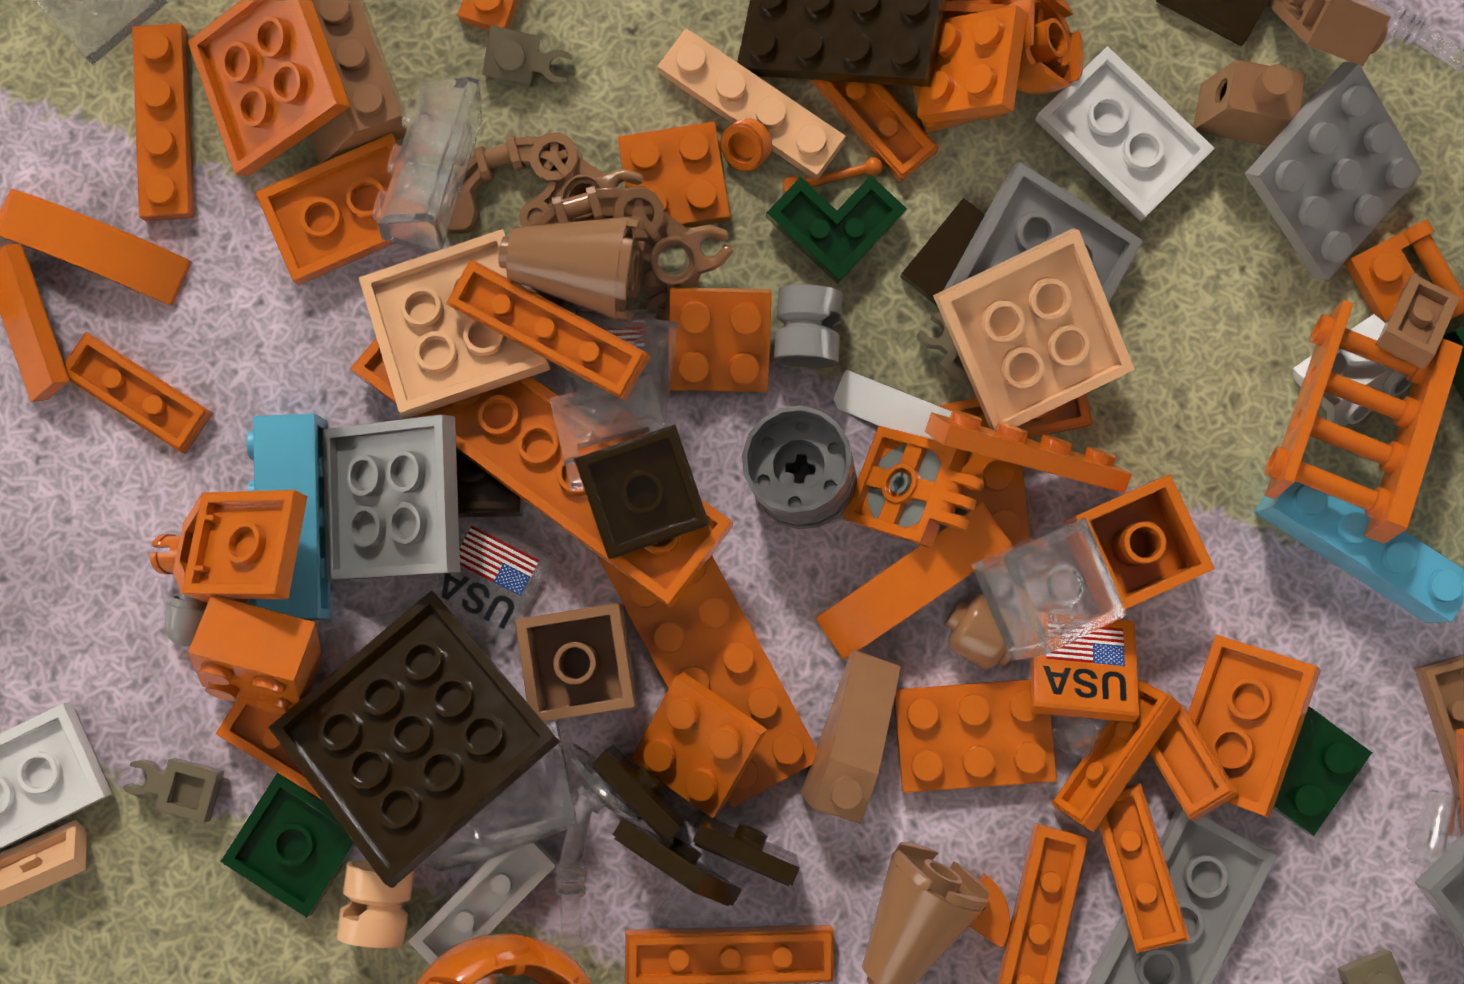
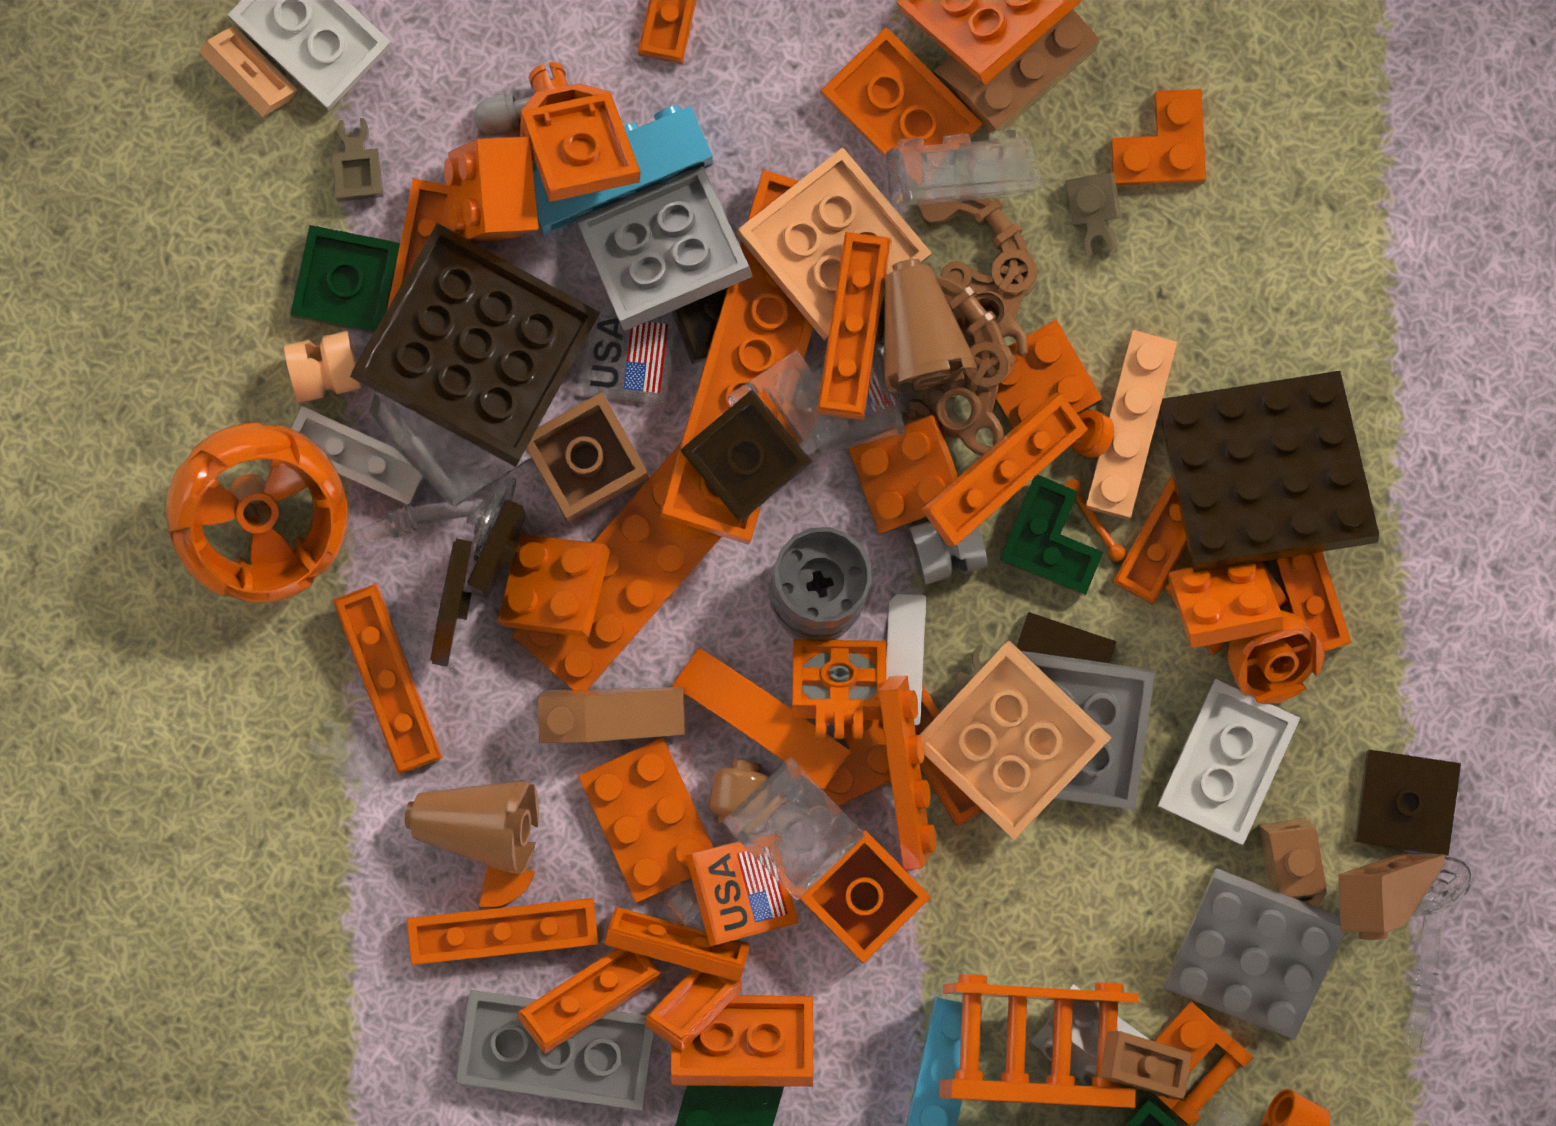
camera: 60 degrees right, 0 degrees up
(747, 848) = (484, 656): dark brown plate -> none
(754, 237) = (1004, 469): none -> orange plate

